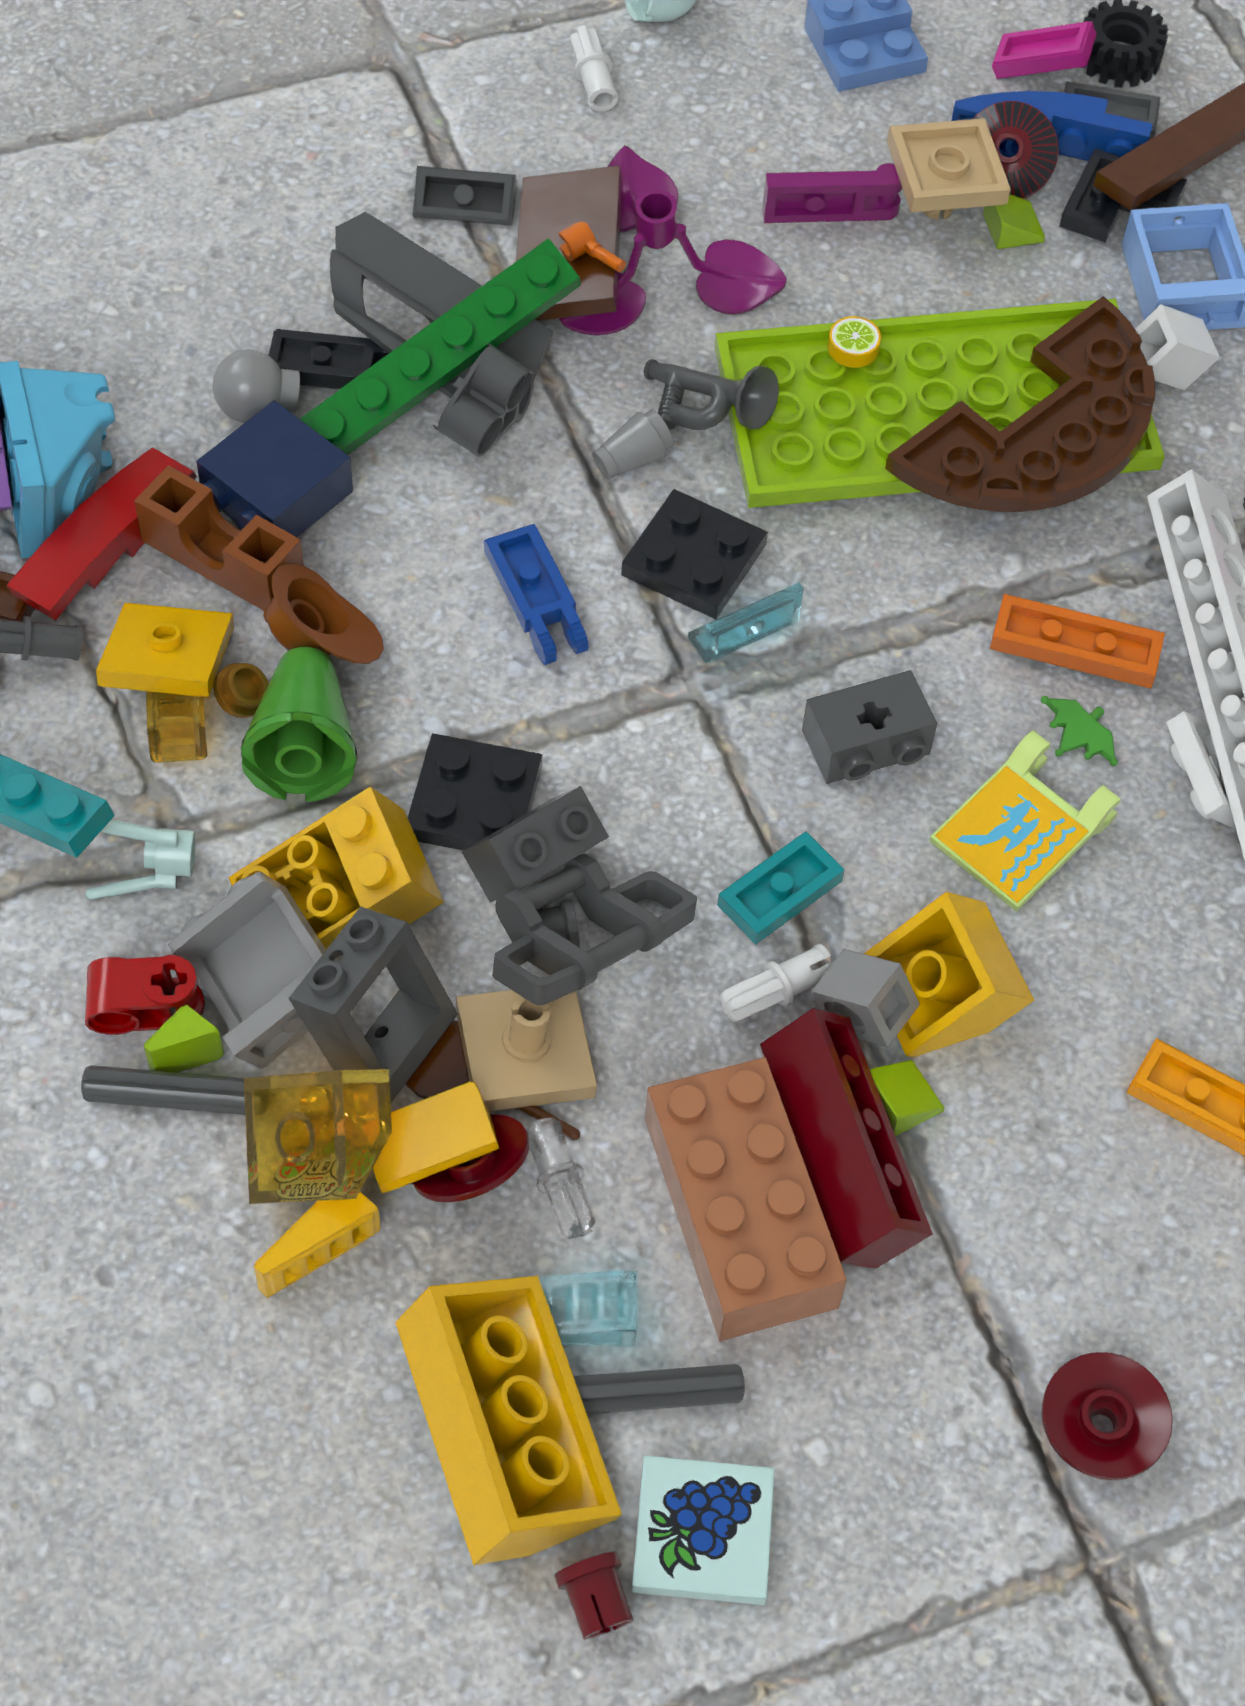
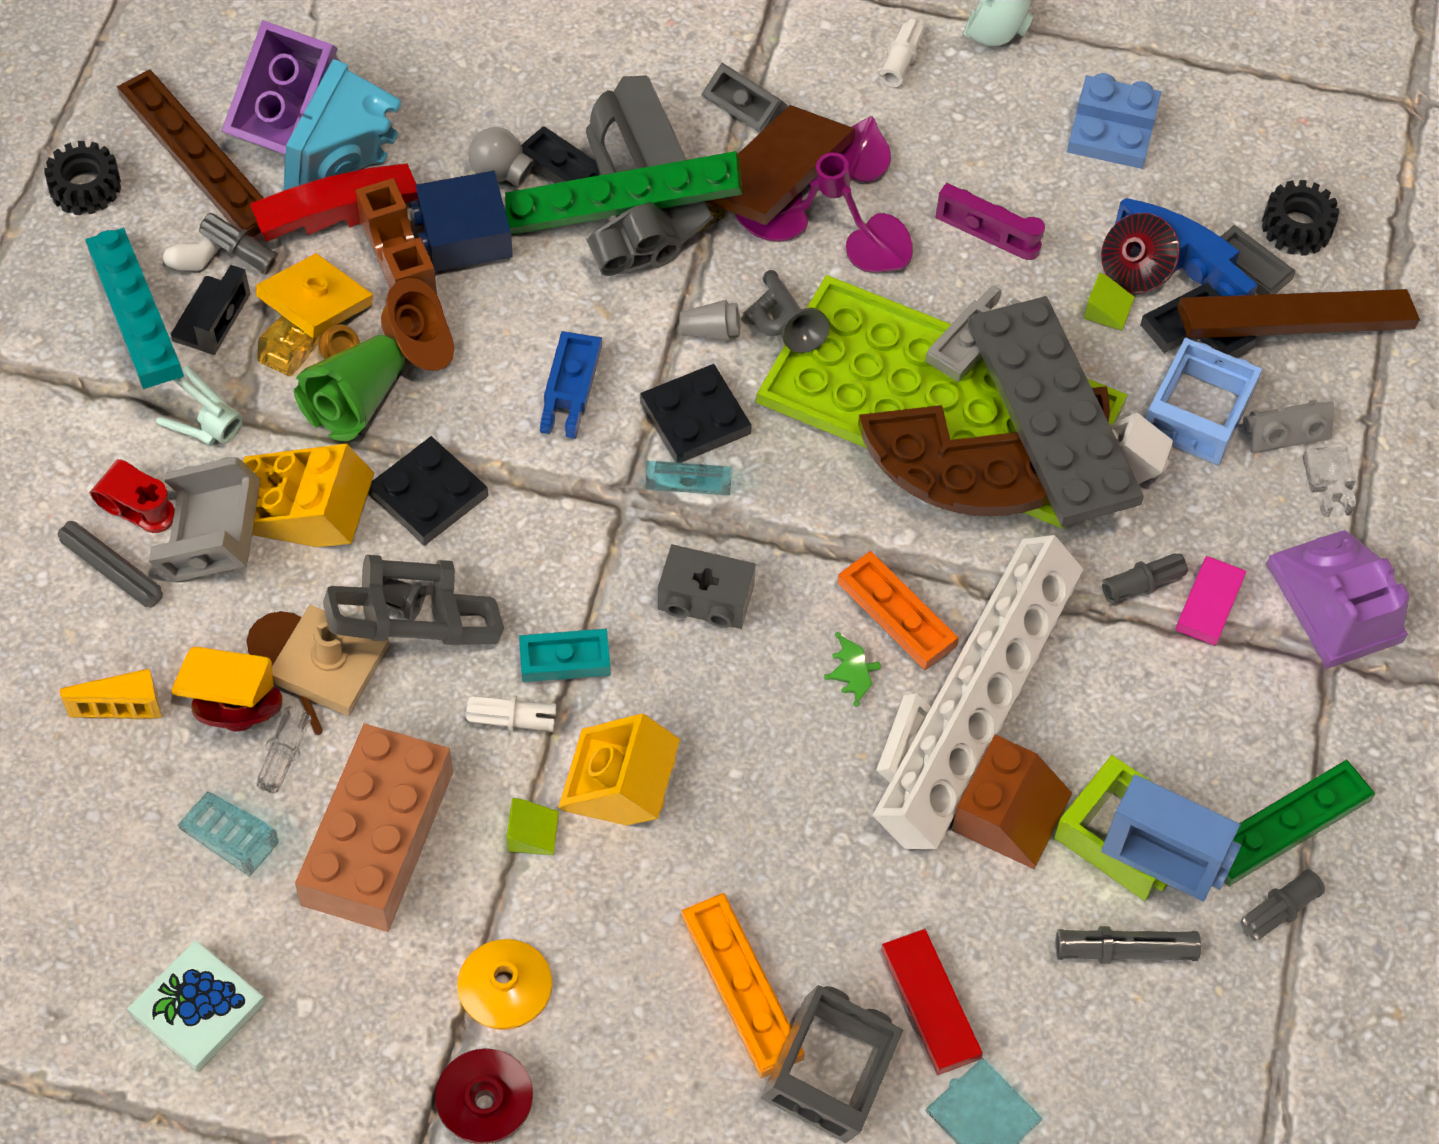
camera: 35 degrees right, 0 degrees up
(50, 728) = (212, 311): none -> black panel
(183, 1042) = (130, 537): lime slope -> none
(314, 1133) = (155, 632): clear yellow slope -> none
(406, 1026) = (255, 610): dark grey window -> none
(505, 1417) = (133, 865): yellow slope -> none
(535, 844) = (427, 537): dark grey brick -> none
(581, 240) = (774, 166): orange hand -> none
(596, 1594) = (102, 999): dark red bush -> none
(661, 1388) = (233, 905): dark grey axle -> none
(845, 1139) = (463, 829): dark red brick -> none
(854, 341) = (910, 328): tile -> none
(870, 993) = (551, 752): light grey brick -> none
(925, 316) = (956, 349): none -> light grey hinge
(948, 166) = (1075, 240): tan tile -> none
(1006, 1308) = (510, 1003): none -> yellow dish
(1018, 829) = (756, 708): flag -> none
(1044, 50) = (1231, 194): dark pink tile -> none
(1080, 345) = (1055, 411): none -> dark grey plate

